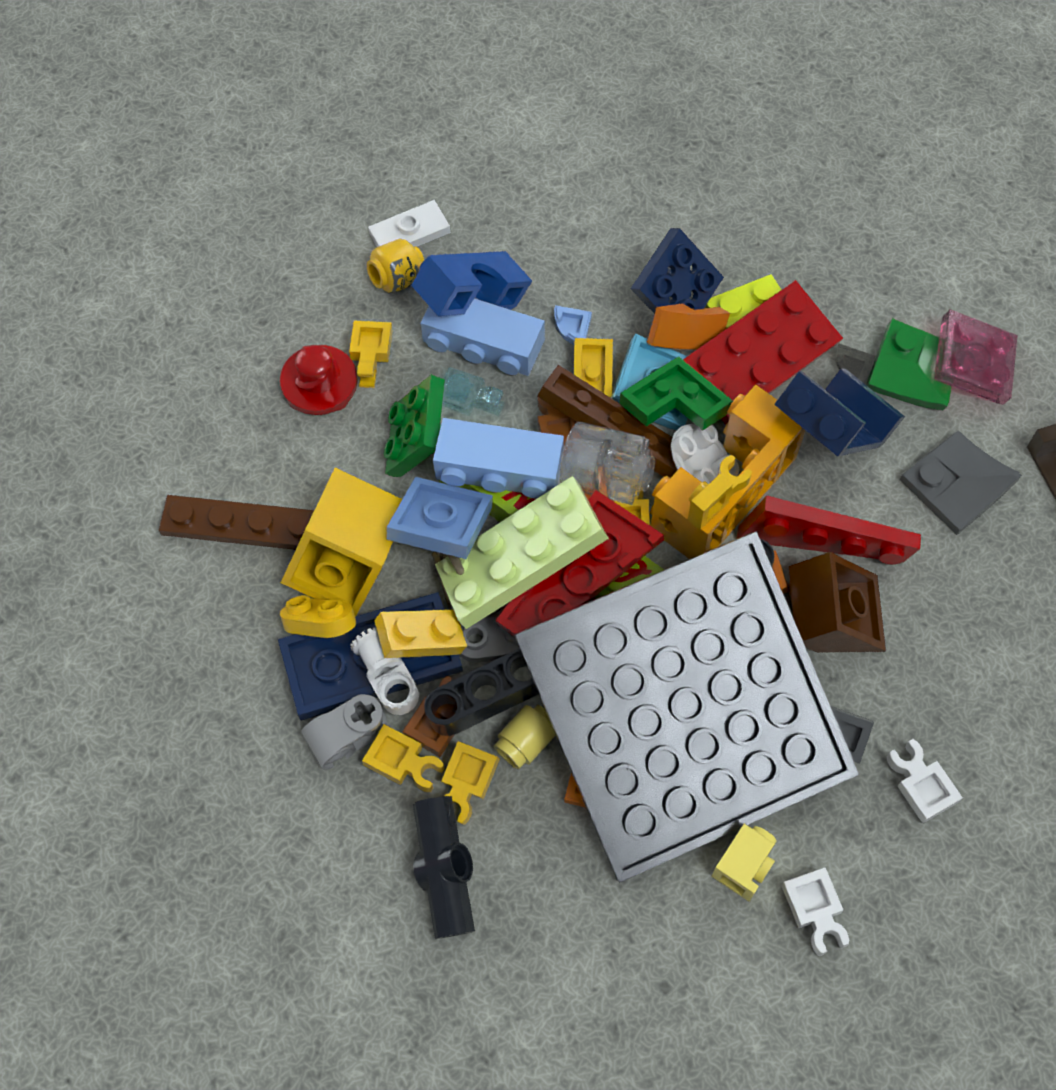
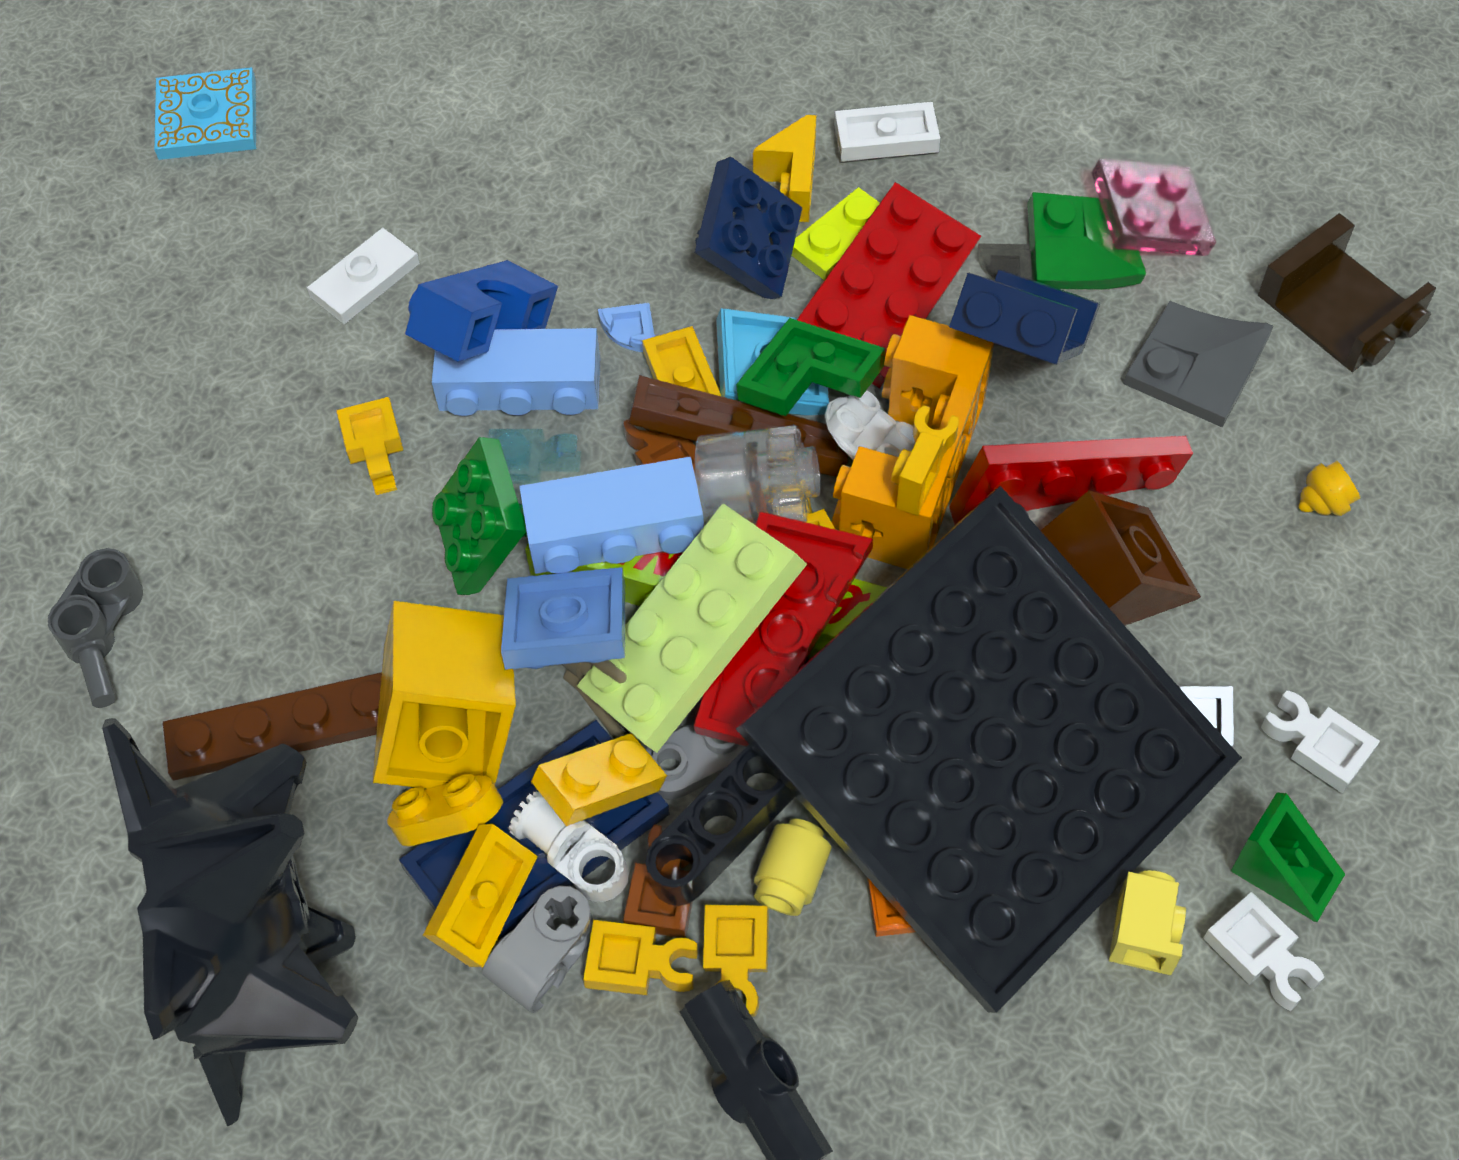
camera: 20 degrees left, 5 degrees down
(145, 638) = (226, 913): none -> black piece
(150, 401) = (95, 606): none -> dark grey beam
(316, 682) = (480, 895): none -> yellow plate
(318, 380) = (316, 502): red plate -> none
(349, 79) = (205, 113): none -> medium azure plate
(394, 265) = (364, 324): yellow head -> none
(686, 328) = (782, 281): orange slope -> none
(731, 241) = (790, 160): none -> yellow slope
(809, 239) = (887, 131): none -> white plate
(862, 856) = (1289, 860): none -> green slope
(1010, 608) = (1320, 498): none -> yellow plate

